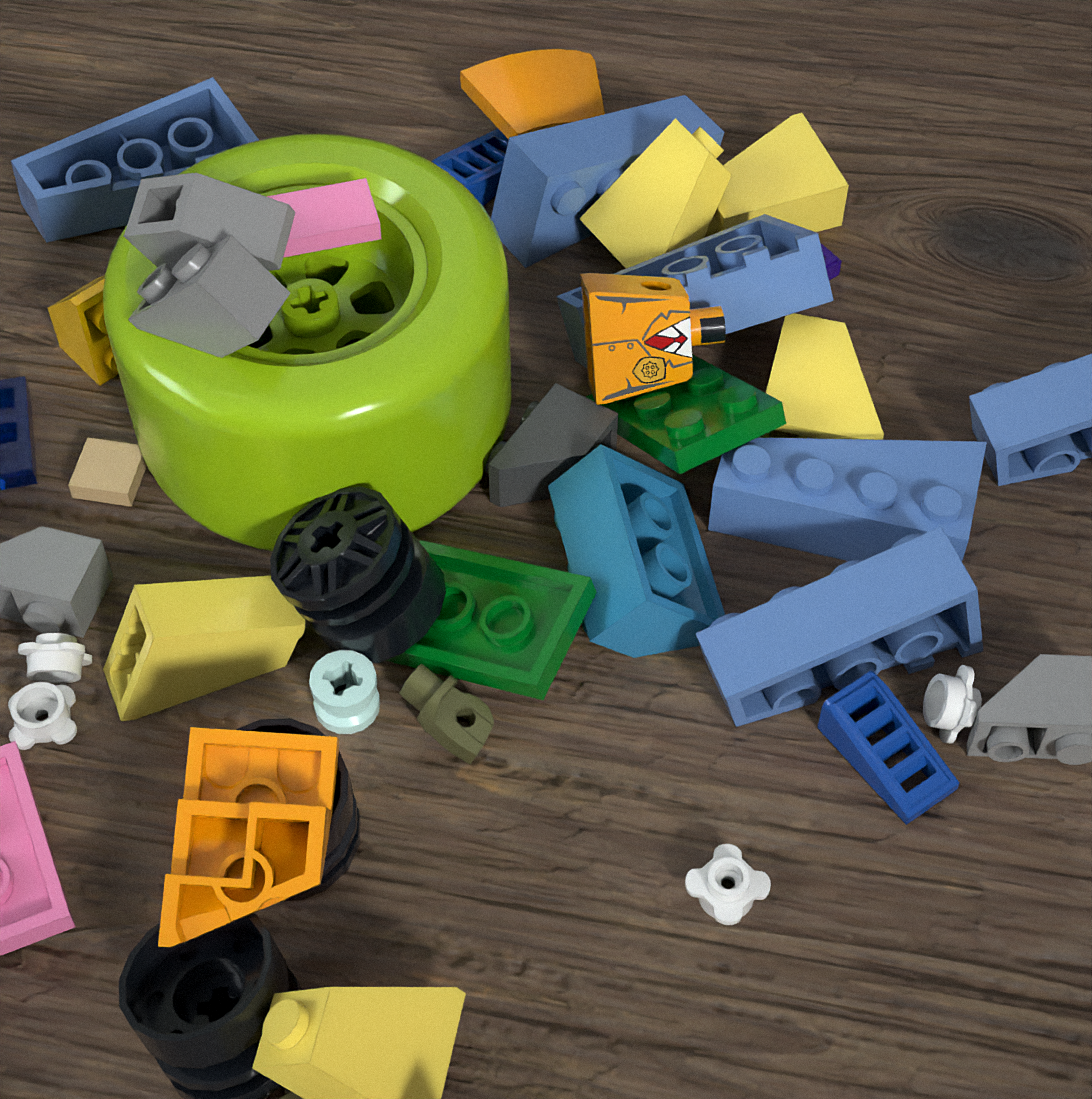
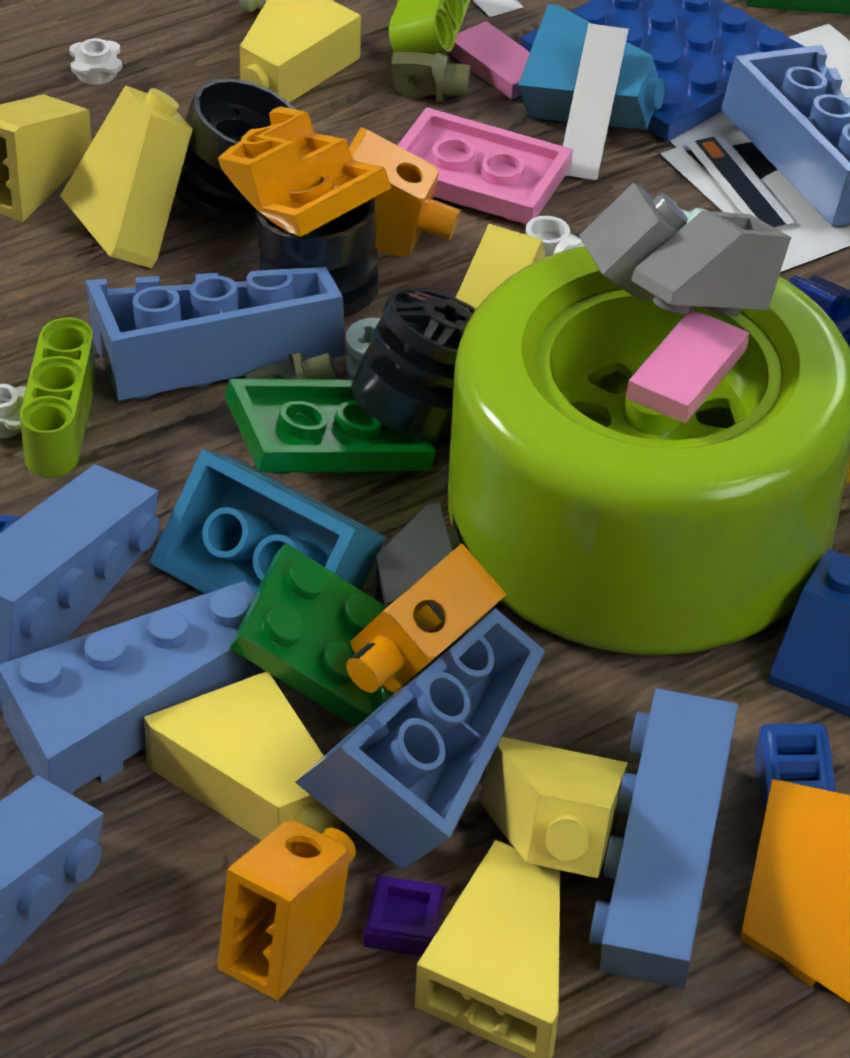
camera: 135 degrees right, 10 degrees down
(128, 821) = (409, 204): none -> light orange torso
(481, 806) = (212, 329): none -> medium blue wedge
(659, 871) = (58, 397): none -> lime beam
(890, 276) = (282, 905): none -> light orange torso

